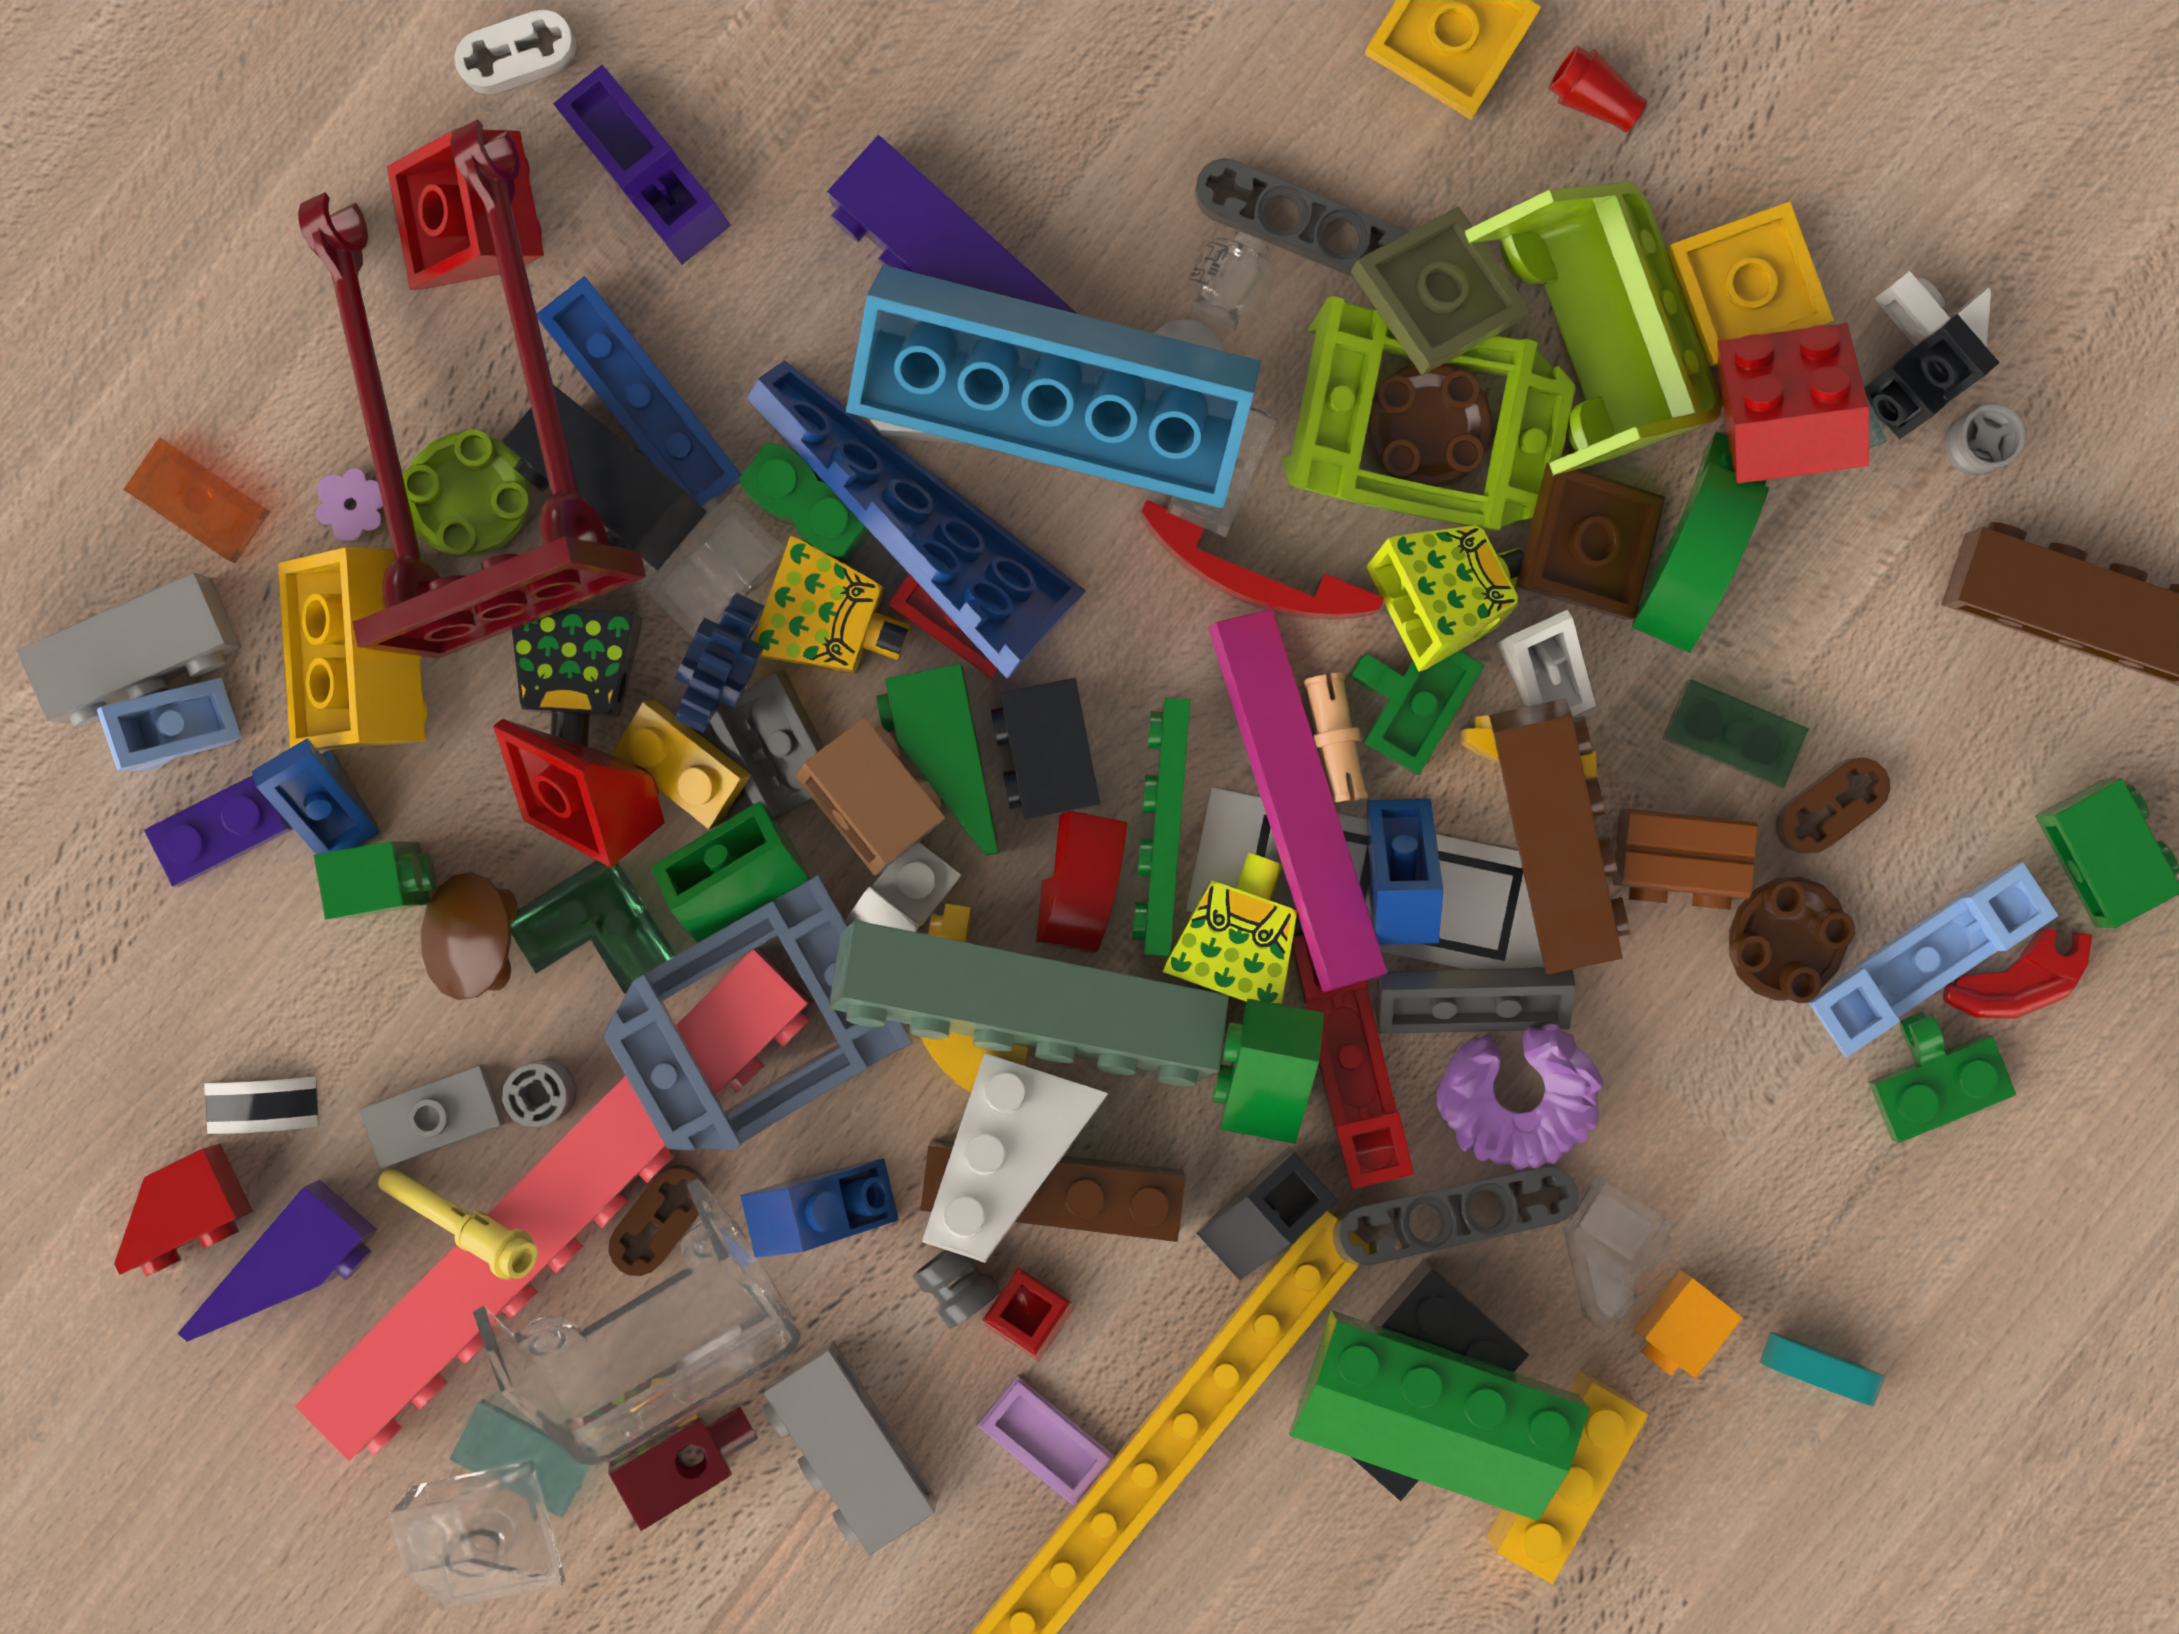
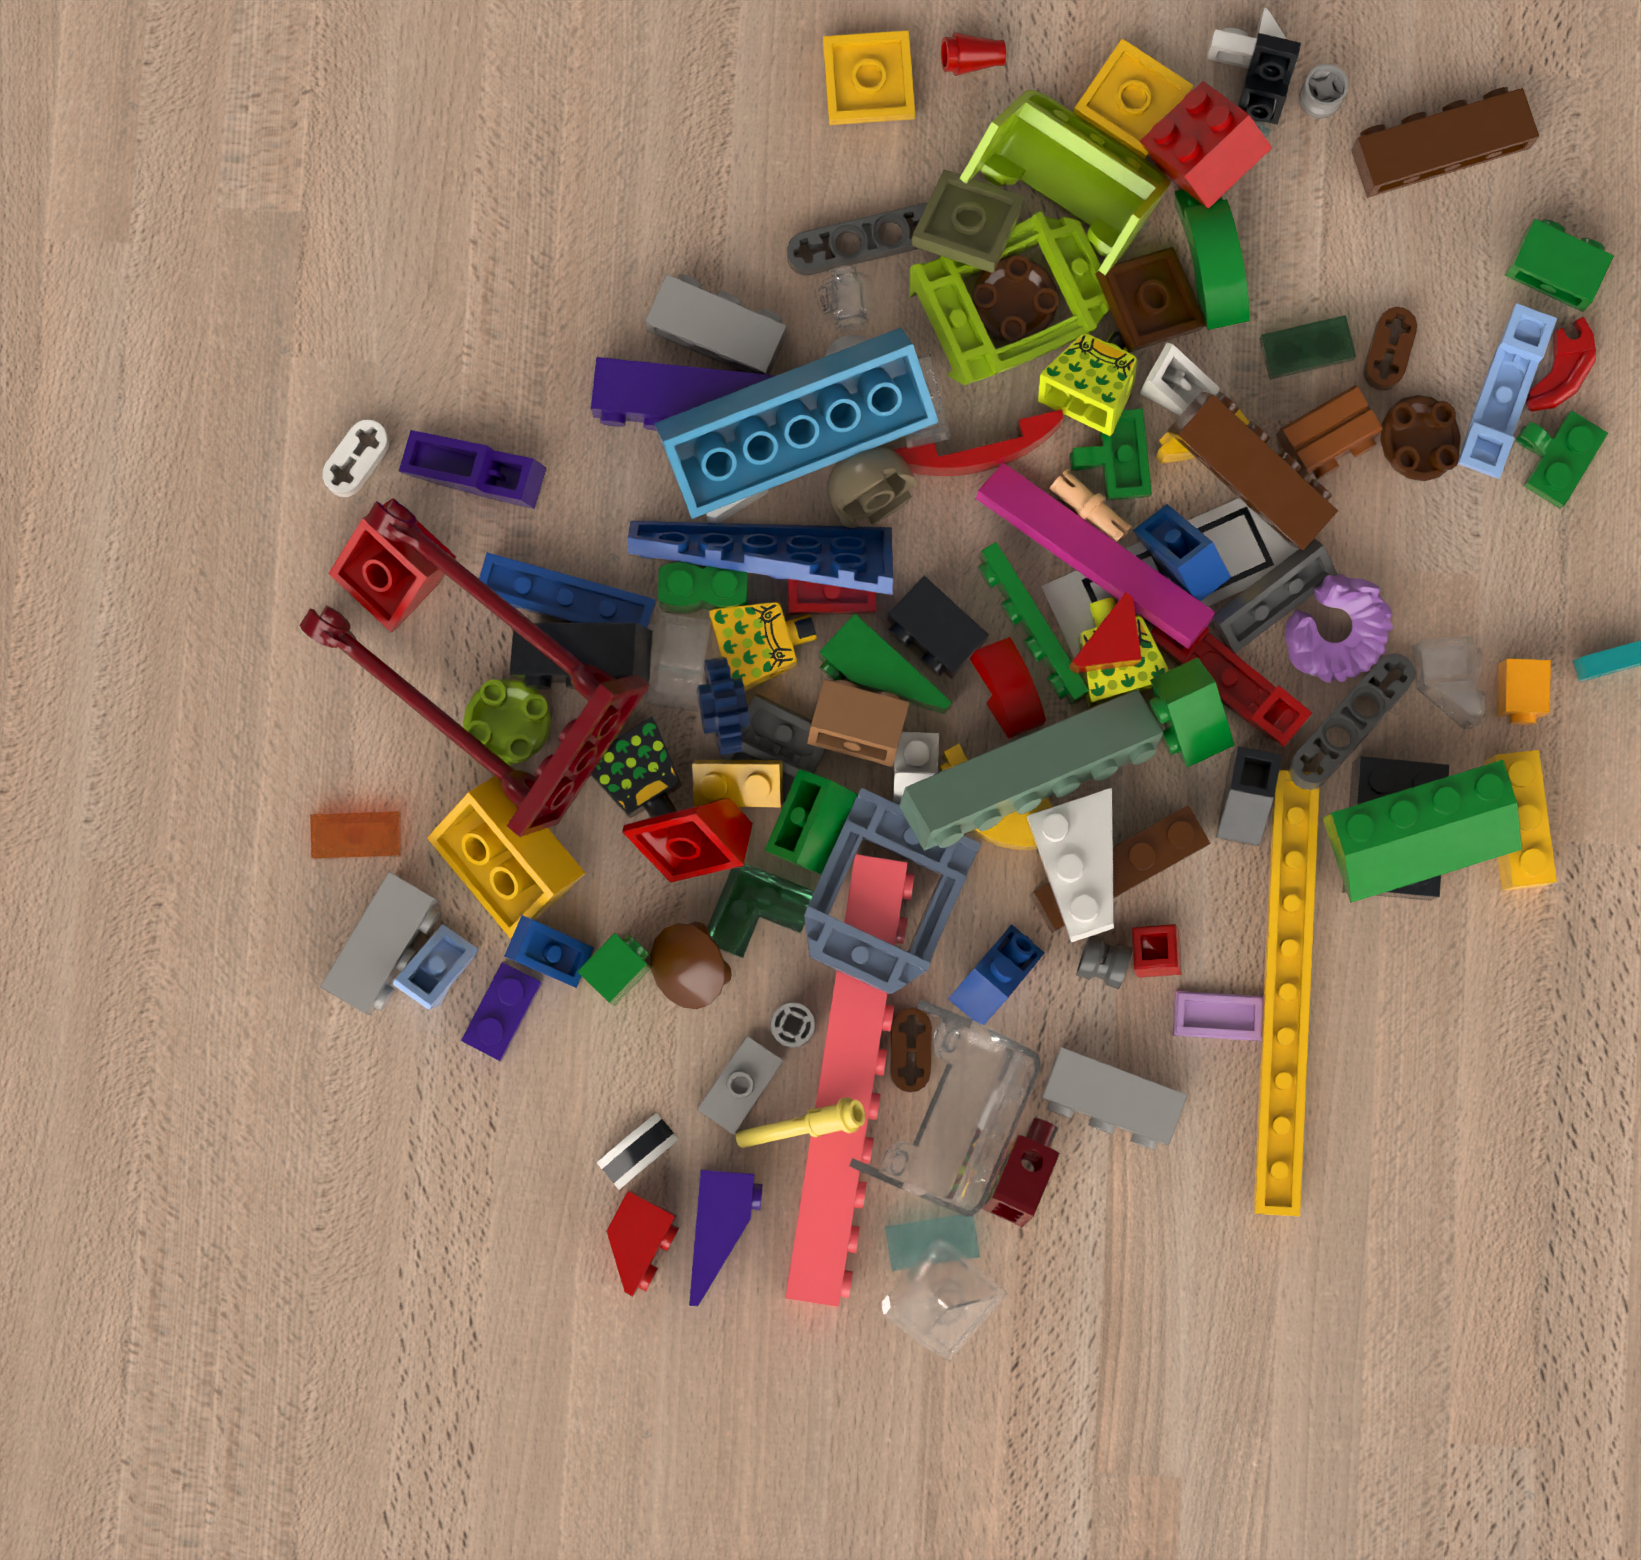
camera: 40 degrees left, 5 degrees down
(338, 493) = (431, 774): lavender plant -> none
(1052, 200) = (716, 325): none -> light grey brick
(1090, 522) = (869, 486): none -> dark tan cylinder
(1237, 921) = (1113, 643): none -> red slope

